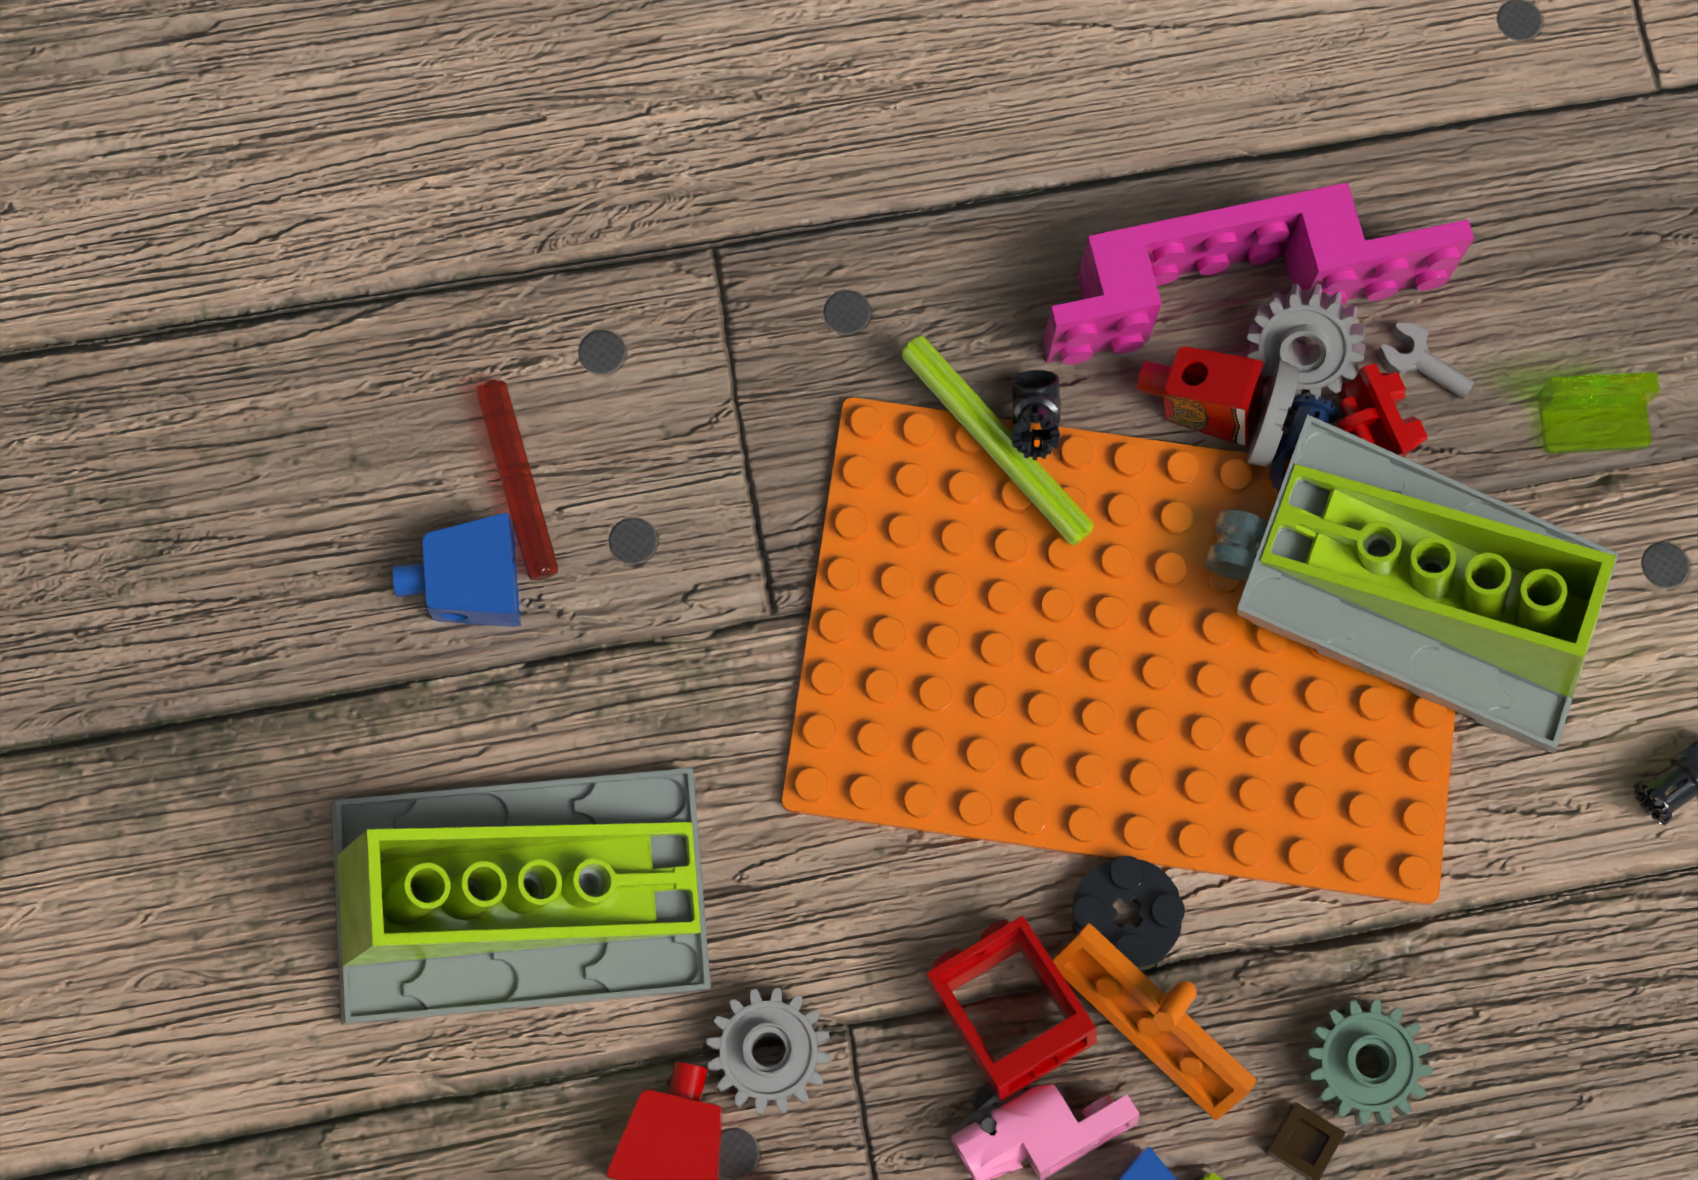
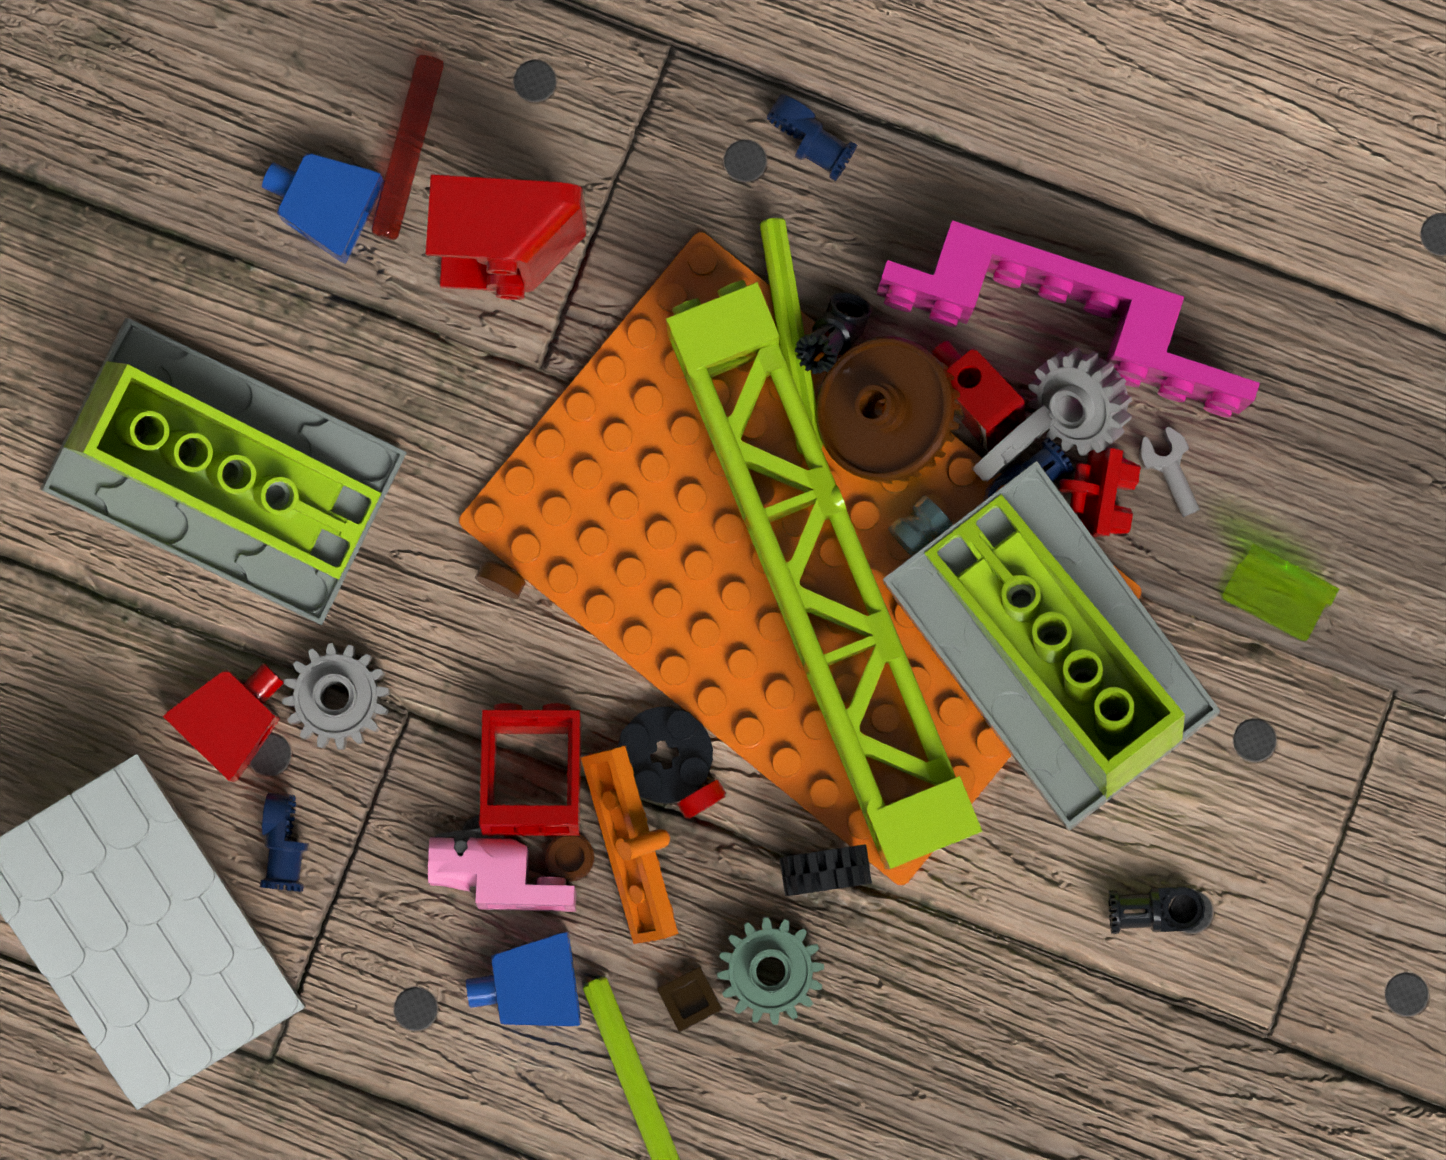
camera: 30 degrees right, 10 degrees up
(665, 488) = (502, 231): none -> red windscreen
(861, 836) = (500, 579): none -> reddish brown tile
(876, 244) = (816, 143): none -> dark blue connector
(956, 448) = (723, 337): none -> lime piece
(1098, 1072) = (570, 857): none -> reddish brown tile
(1173, 456) = (915, 417): none -> reddish brown wheel
(1193, 933) = (702, 799): none -> red tile
(1360, 927) = (825, 870): none -> black tyre

